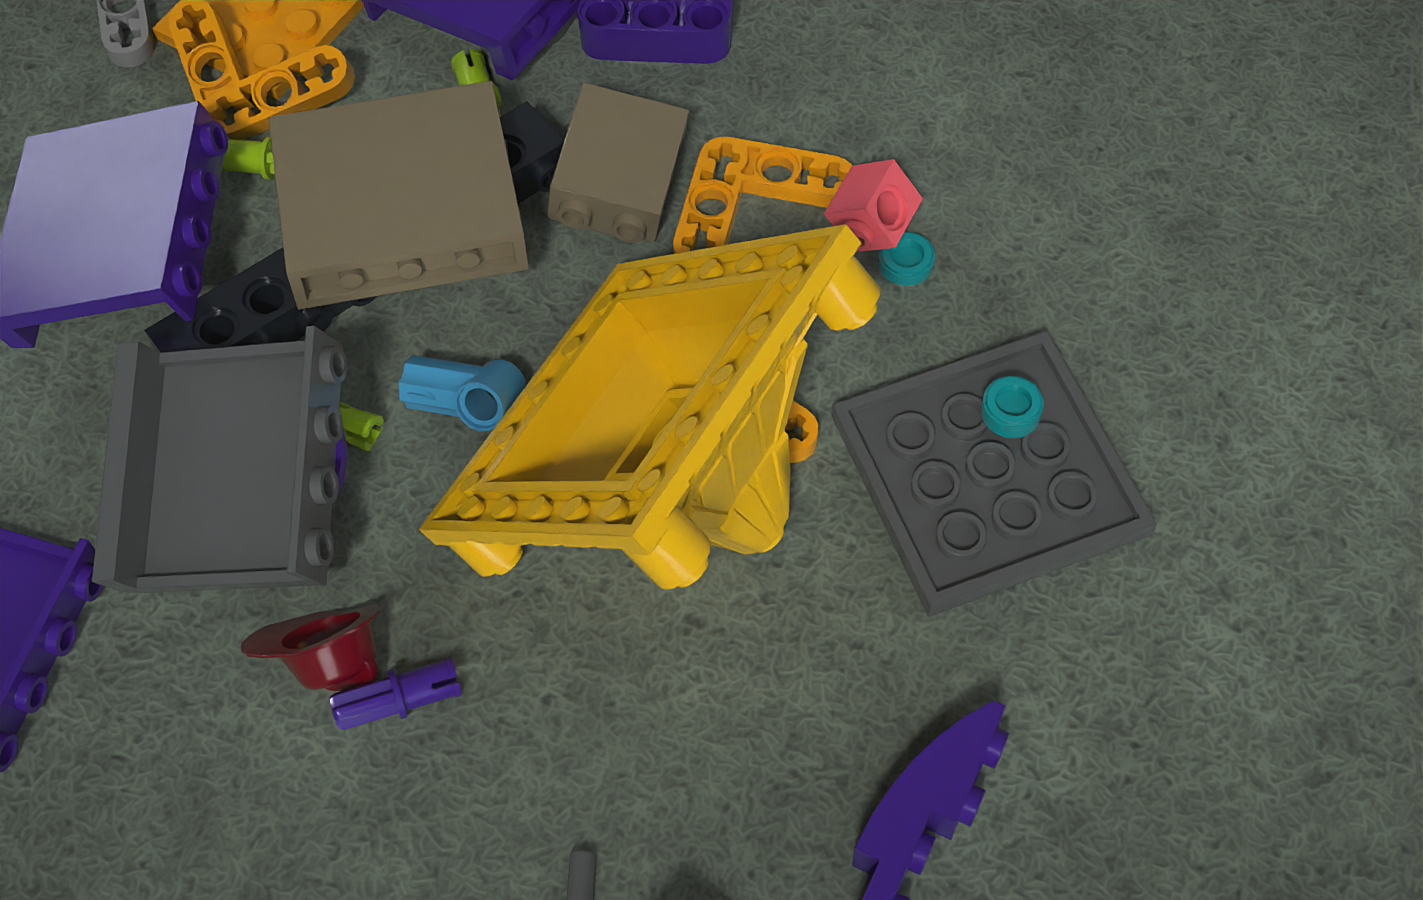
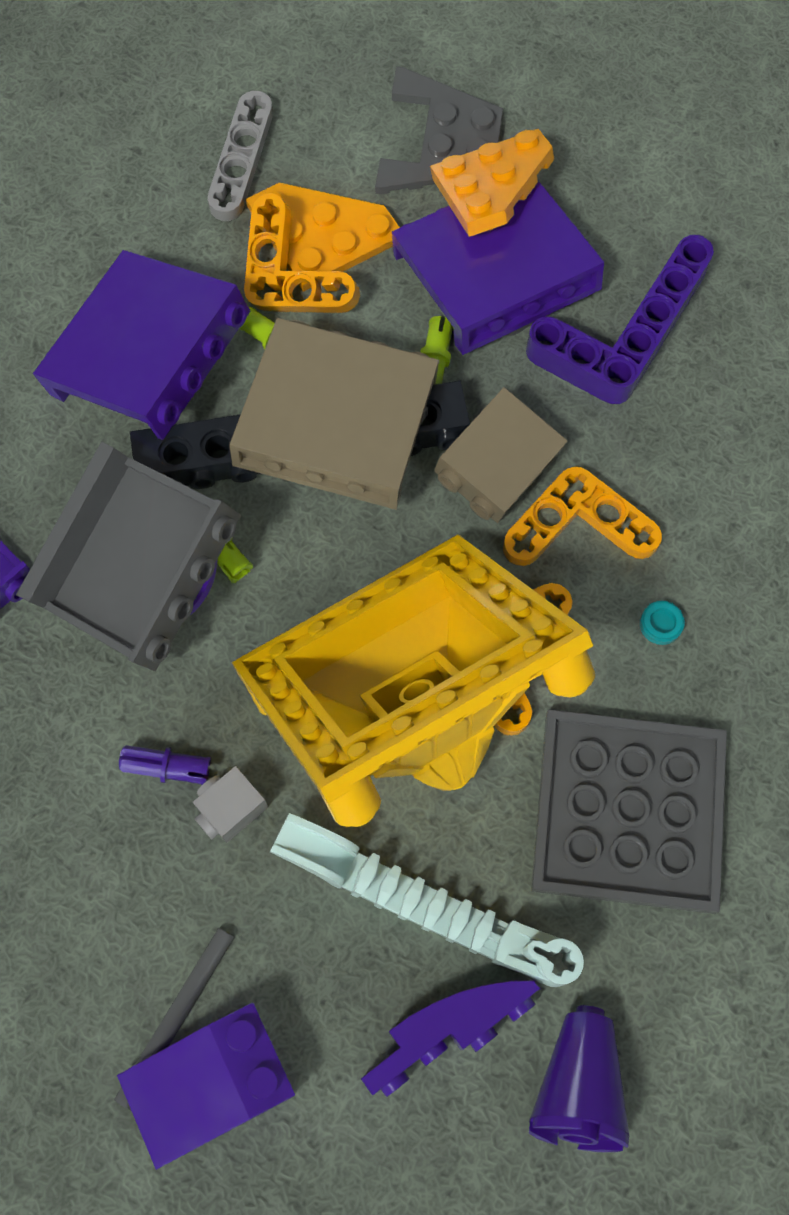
camera: 25 degrees right, 10 degrees up
(322, 648) = (133, 706): dark red piece -> none
(461, 389) = (317, 581): dark azure piece -> none
(504, 698) = (228, 805): none -> light grey brick
(875, 204) = (657, 576): coral brick -> none
(952, 678) = (342, 866): none -> light aqua piece
(1012, 407) = (667, 776): teal tile -> none
(1123, 796) = (583, 1087): none -> dark purple cone

